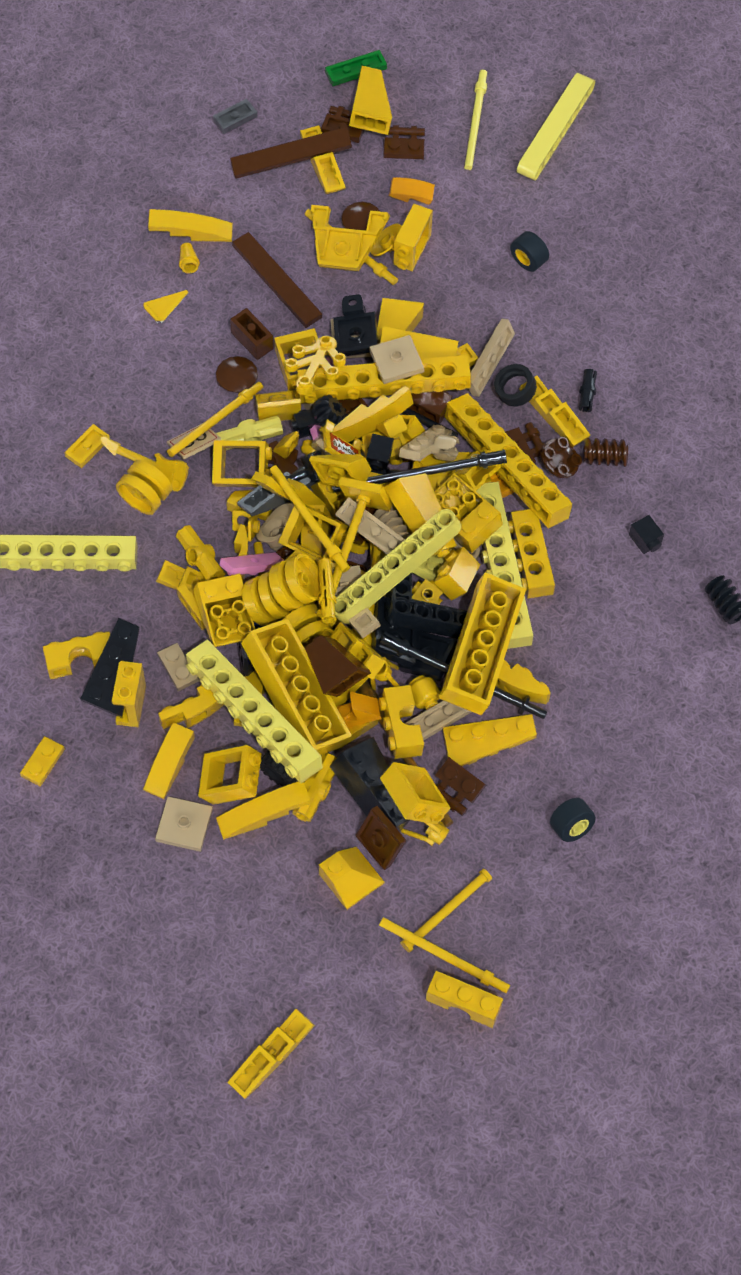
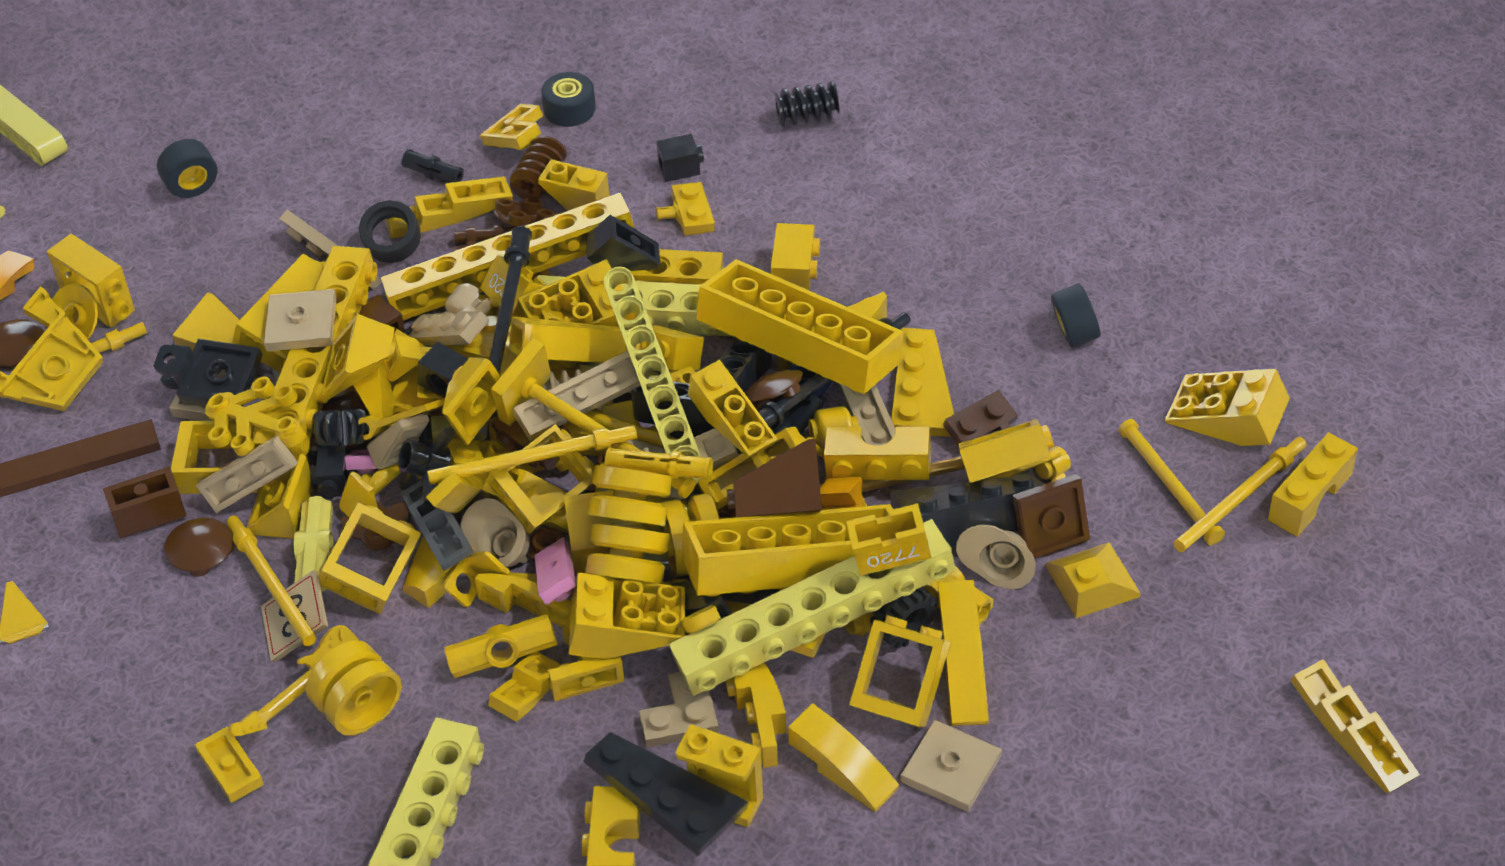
camera: 70 degrees left, 15 degrees down
(228, 651) = (700, 619): none -> yellow tile
(283, 380) = (246, 474): none -> tan tile
(286, 731) = (888, 540): none -> yellow brick
(346, 814) = (996, 556): none -> tan piece
(370, 400) = (357, 354): none -> yellow slope
(378, 619) = (729, 409): none -> yellow slope
(430, 643) = (772, 385): none -> reddish brown dish
(523, 936) = (1231, 405): none -> yellow slope
(529, 522) = (622, 246): none -> black slope
(570, 630) = (794, 254): none -> yellow brick
(592, 479) = (574, 184): none -> yellow slope
(603, 556) = (689, 209): none -> yellow plate
(635, 422) = (514, 129): none -> yellow plate
(681, 450) = (568, 99): none -> black wheel

